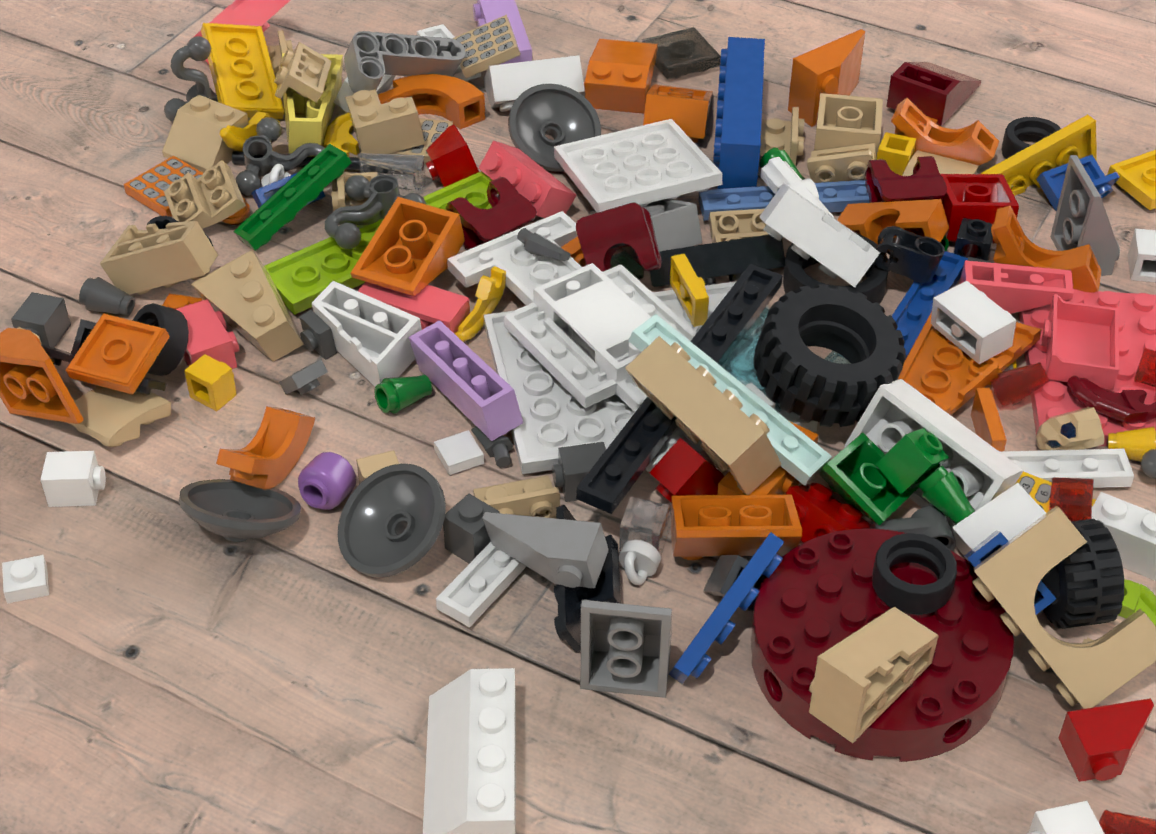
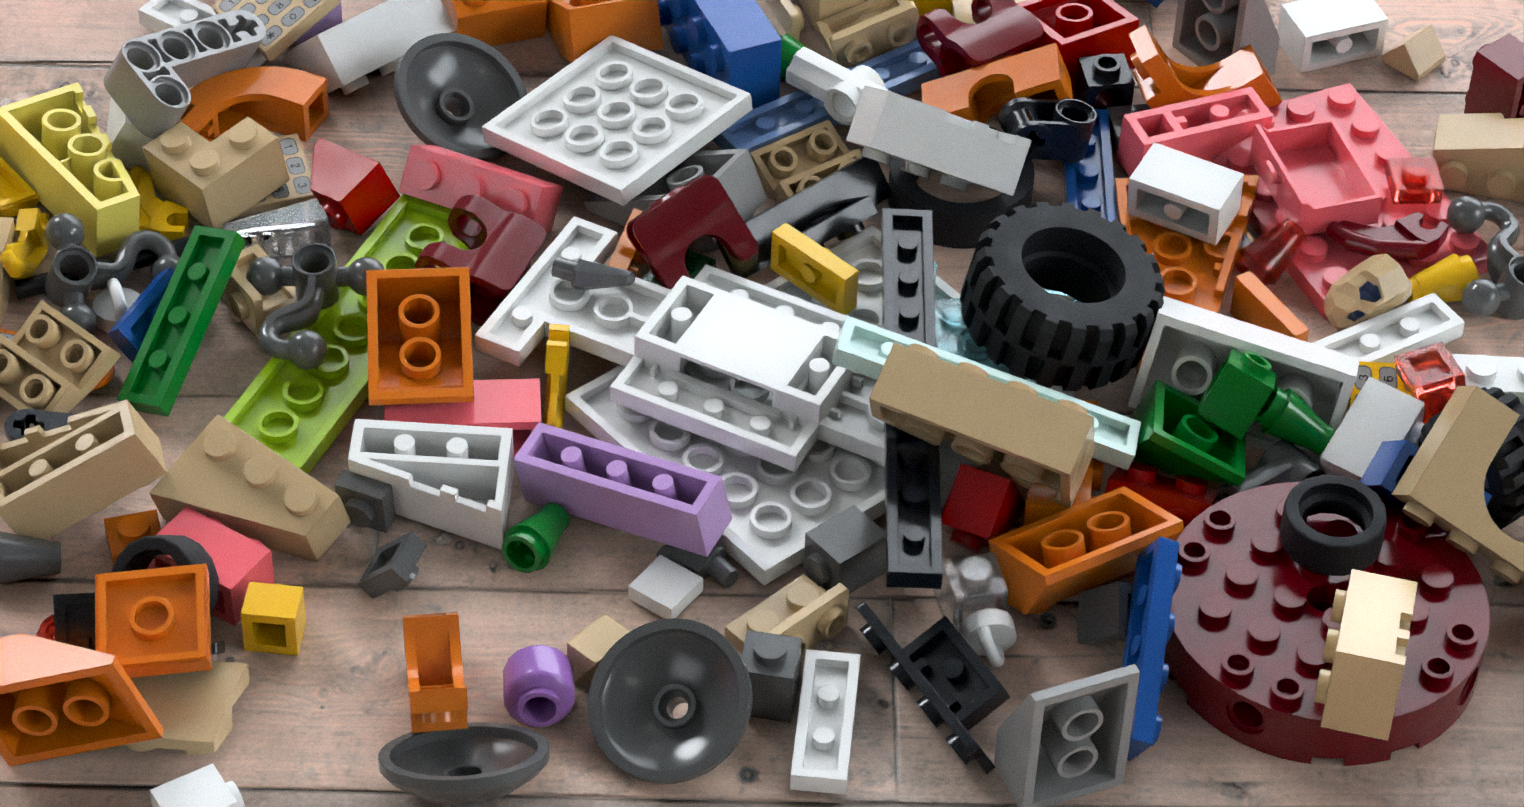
camera: 30 degrees left, 0 degrees up
(304, 72) = (64, 128): tan bracket -> none
(557, 549) = (902, 656): light grey slope -> none

